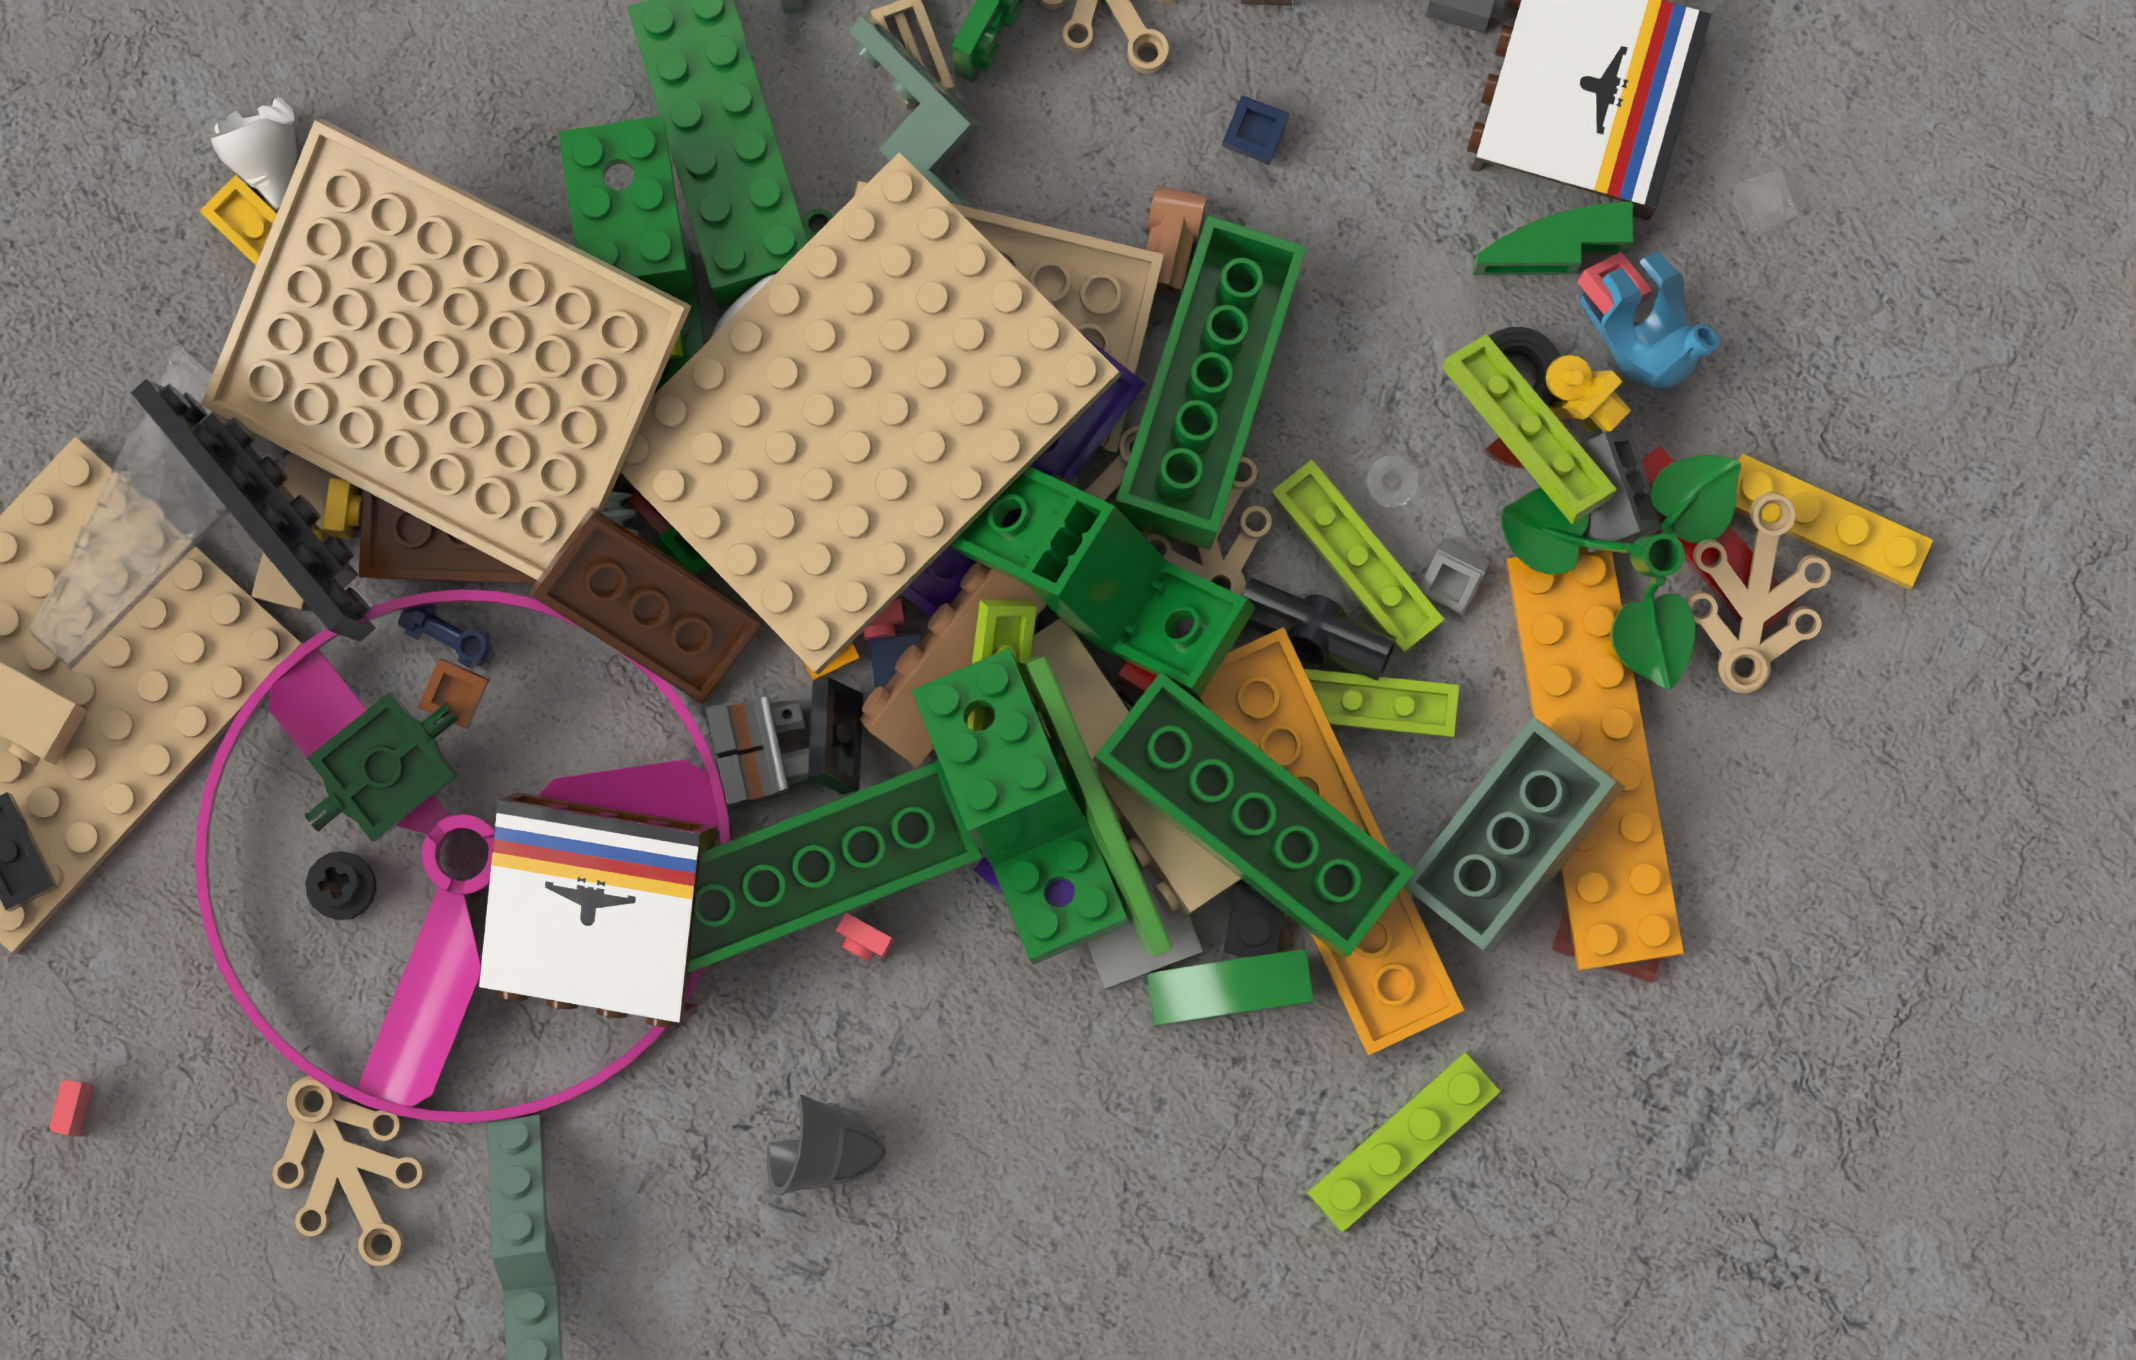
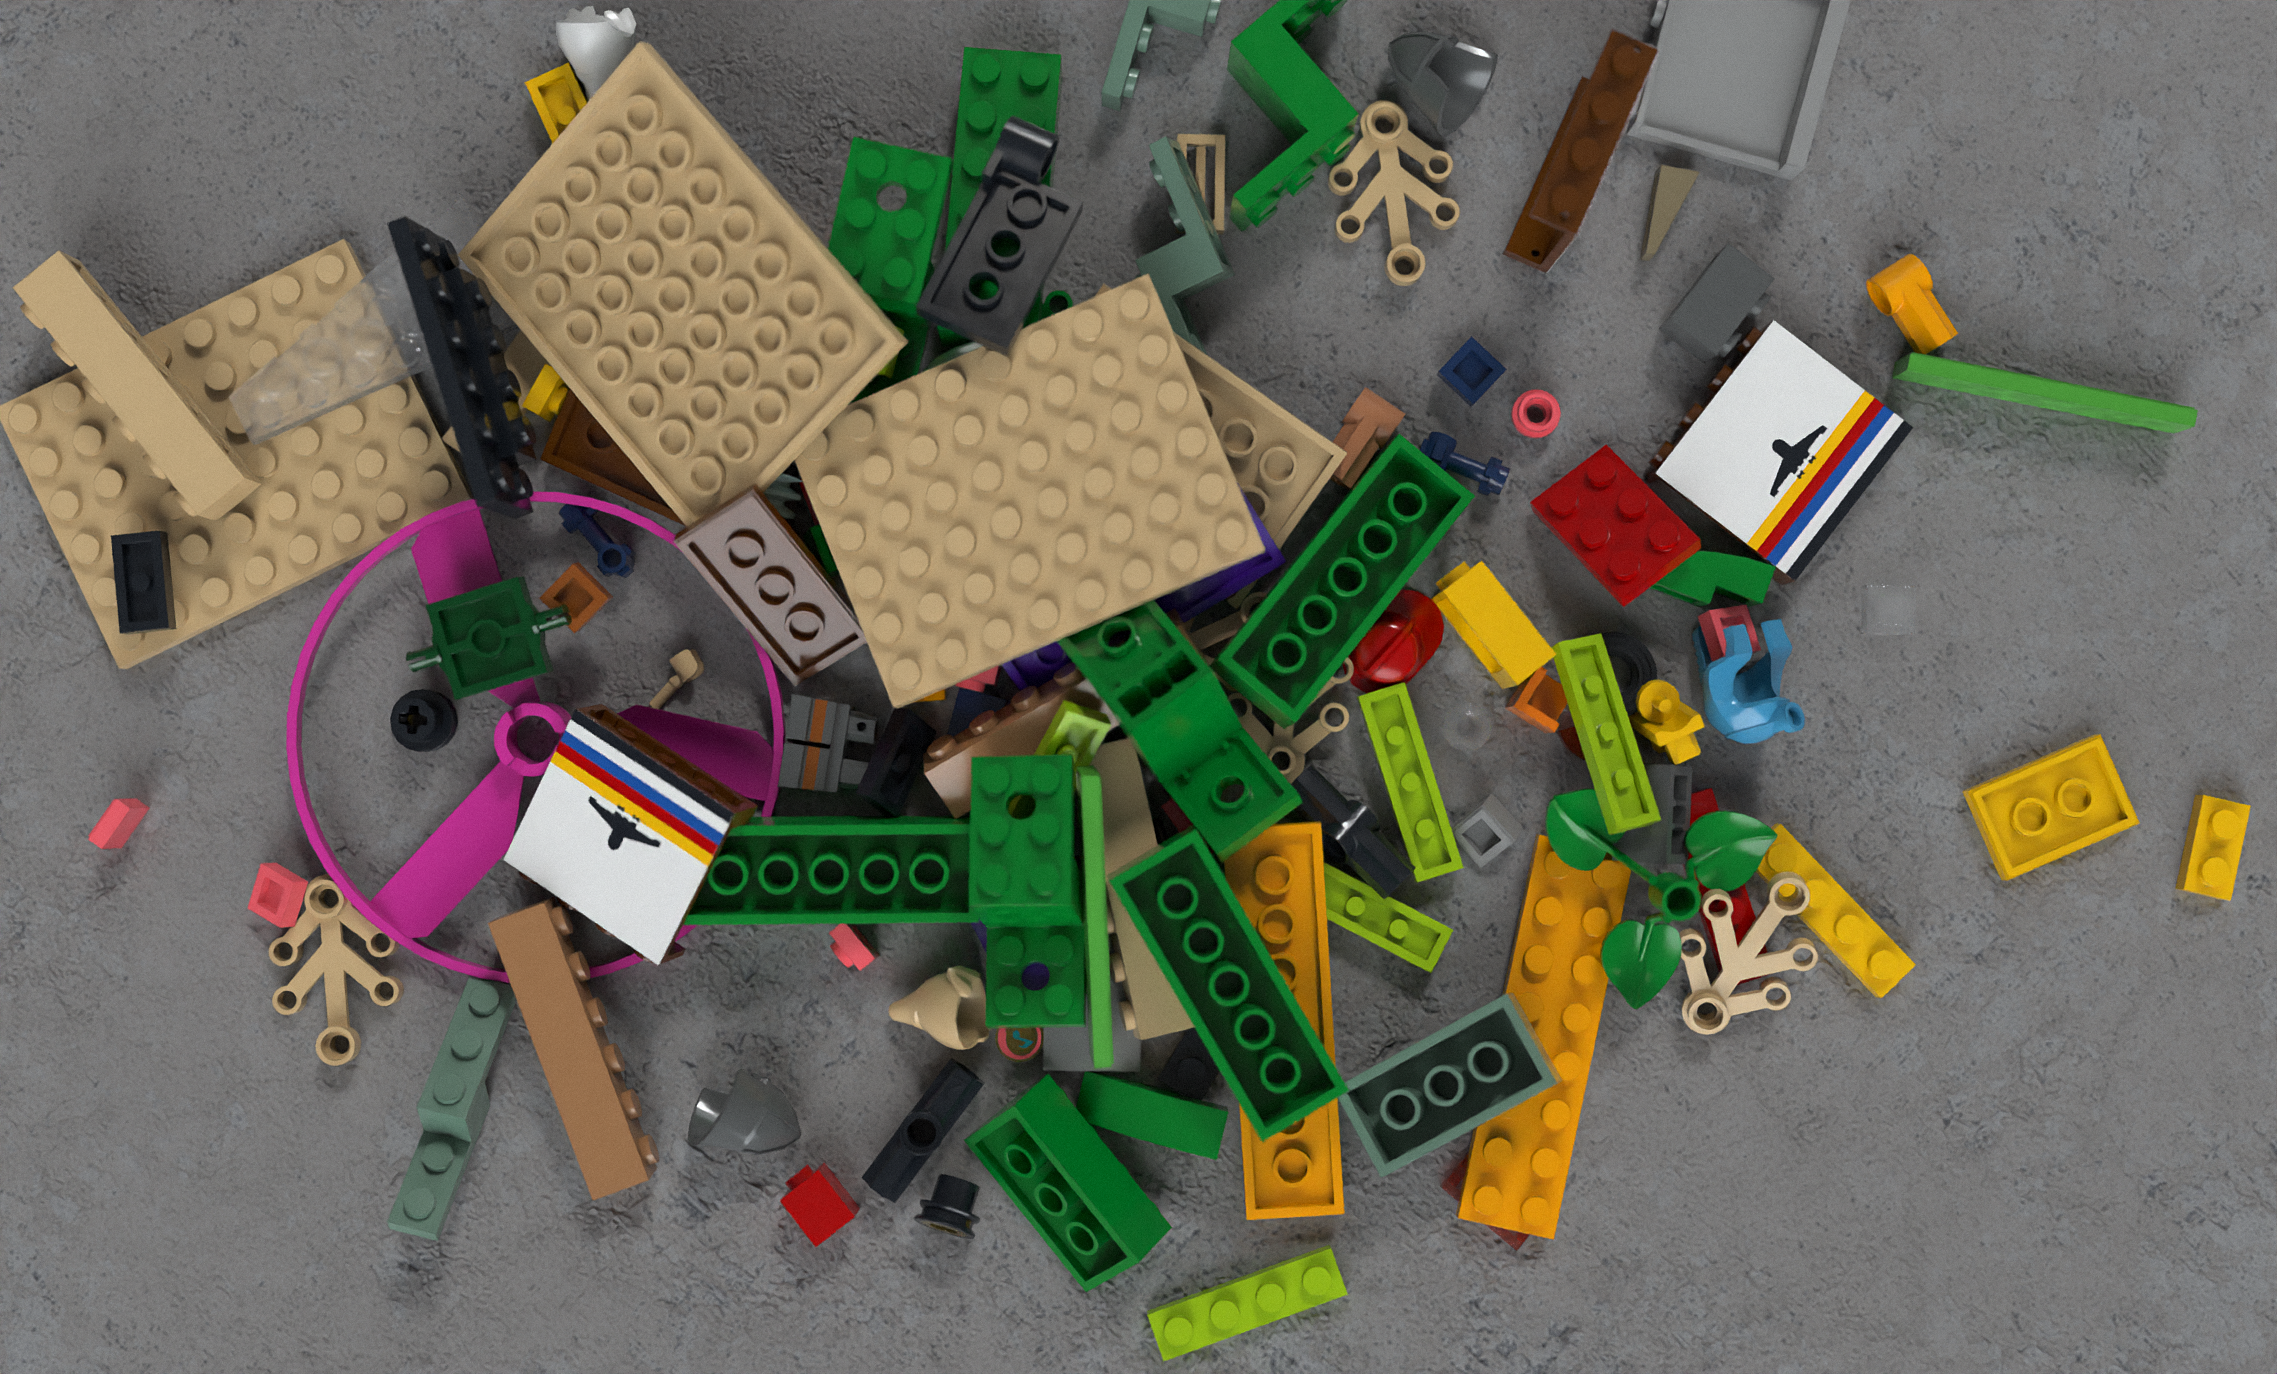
camera: 15 degrees right, 5 degrees up
(261, 1116) = (277, 895): none -> coral plate
(588, 729) = (688, 667): none -> tan hand
(623, 1148) = (575, 1047): none -> medium nougat brick
(735, 141) = (1008, 206): none -> black hinge
(930, 1209) = (818, 1202): none -> red brick
(983, 960) = (947, 1008): none -> tan hat
(1015, 1059) = (906, 1155): none -> black piece
(1066, 1162) = (950, 1207): none -> black piece
(1069, 969) = (1019, 1043): none -> clear yellow tile
(1174, 1091) = (1068, 1184): none -> green slope
(1288, 425) = (1397, 643): none -> red piece
(1315, 225) = (1441, 449): none -> dark blue bar
(1336, 131) = (1548, 406): none -> coral plate
(1373, 366) = (1491, 624): none -> yellow window
(1453, 426) = (1539, 701): none -> orange panel
(1457, 223) = (1615, 525): none -> red plate
(2004, 333) = (2050, 807): none -> yellow tile

